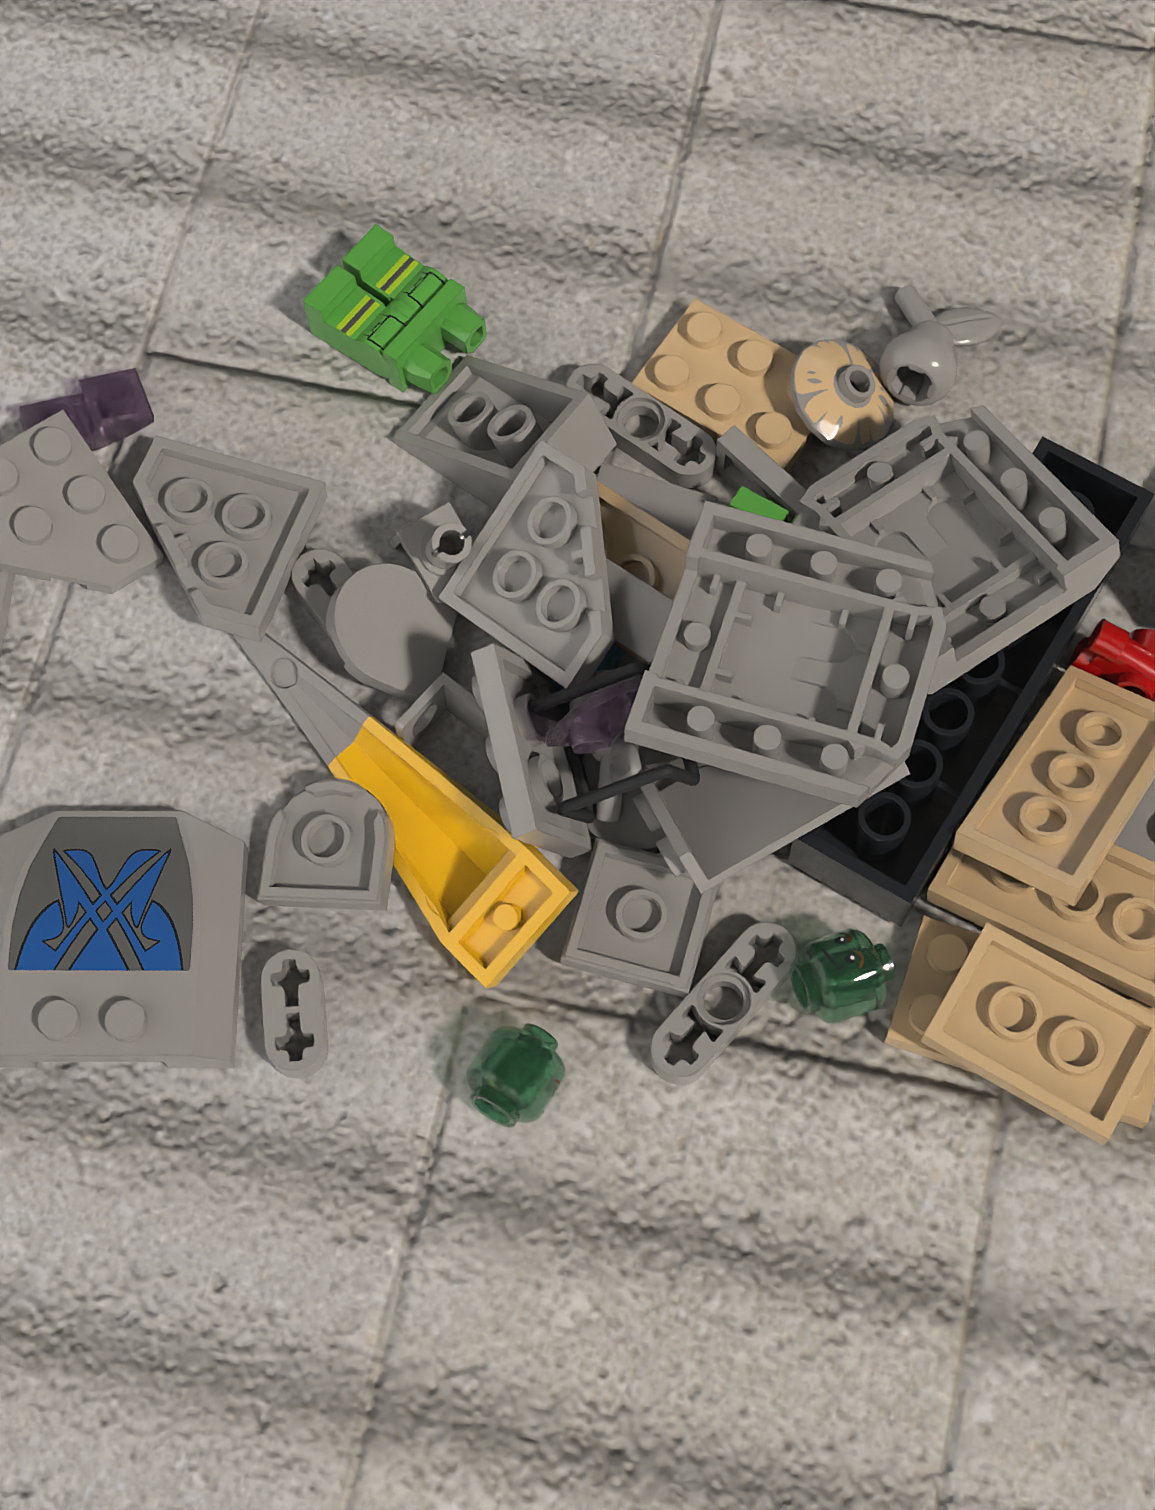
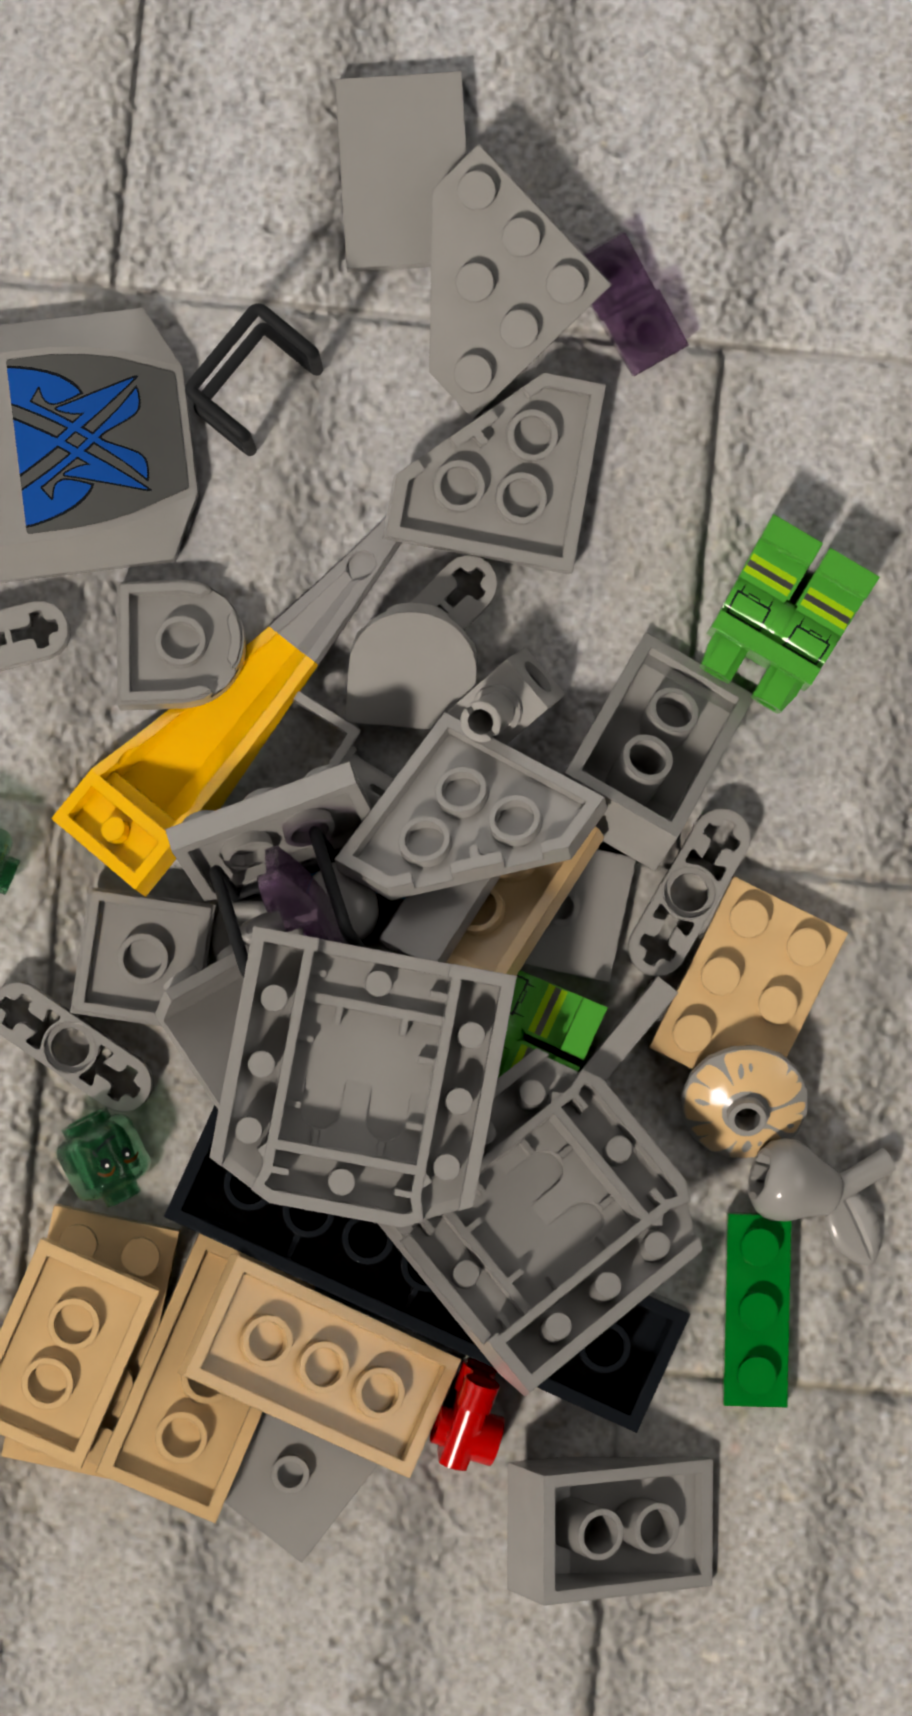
camera: 80 degrees right, 20 degrees up
(51, 749) = (274, 329): none -> black piece
(1066, 414) = (756, 1311): none -> green plate

